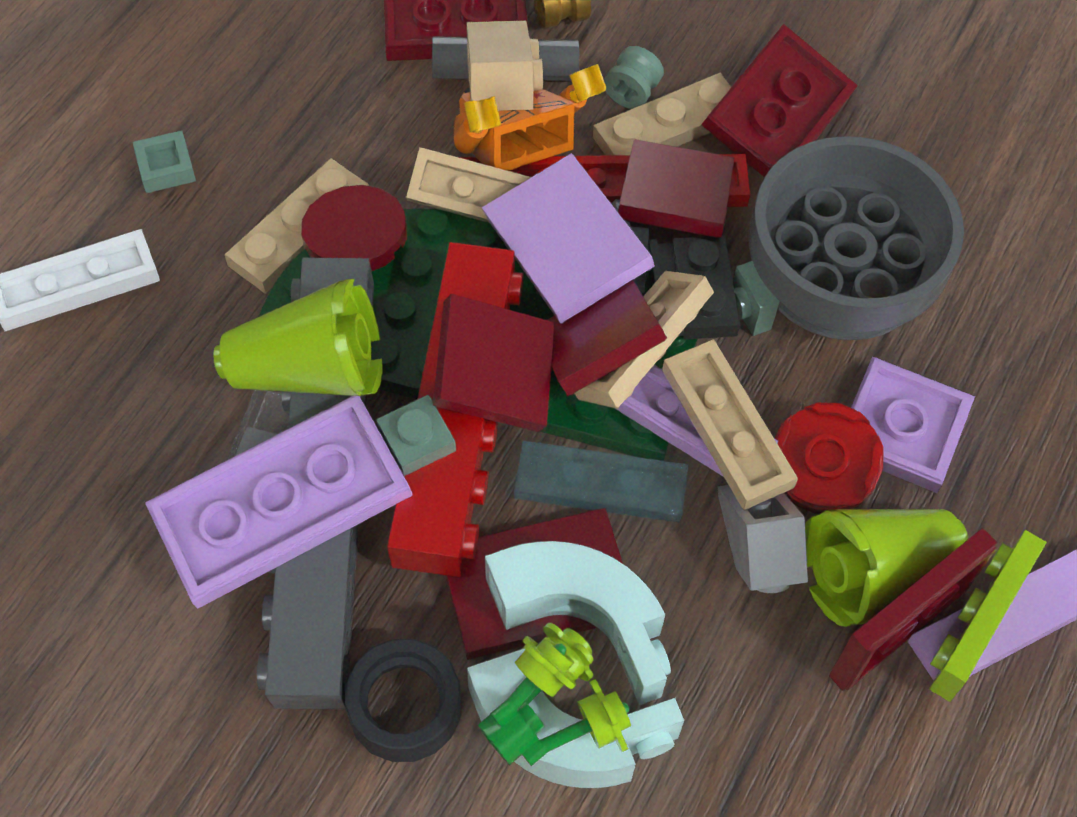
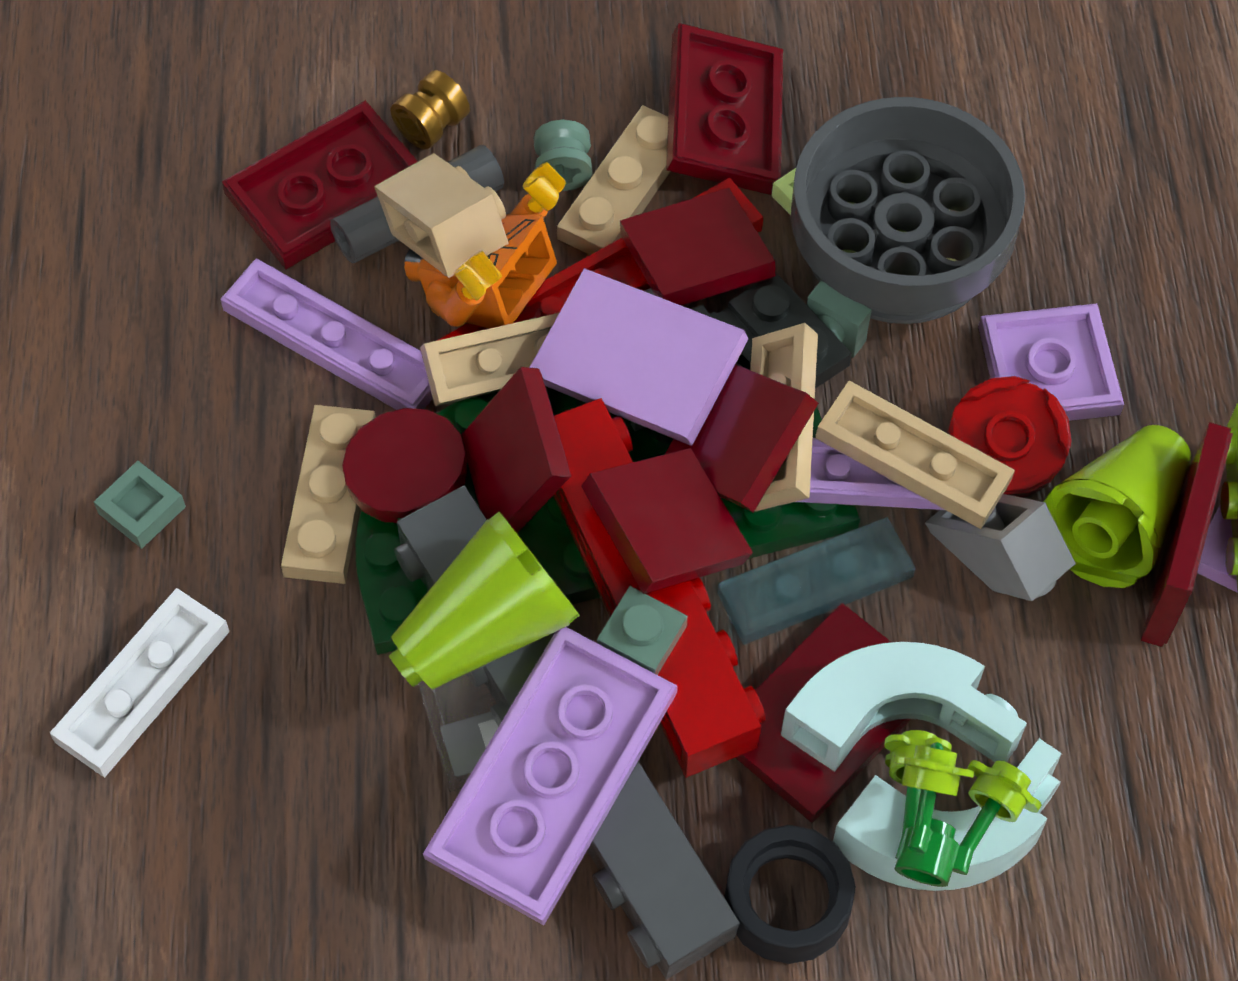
camera: 30 degrees left, 0 degrees up
(376, 114) = (329, 336): none -> lavender tile
(425, 258) = (516, 450): none -> dark red tile

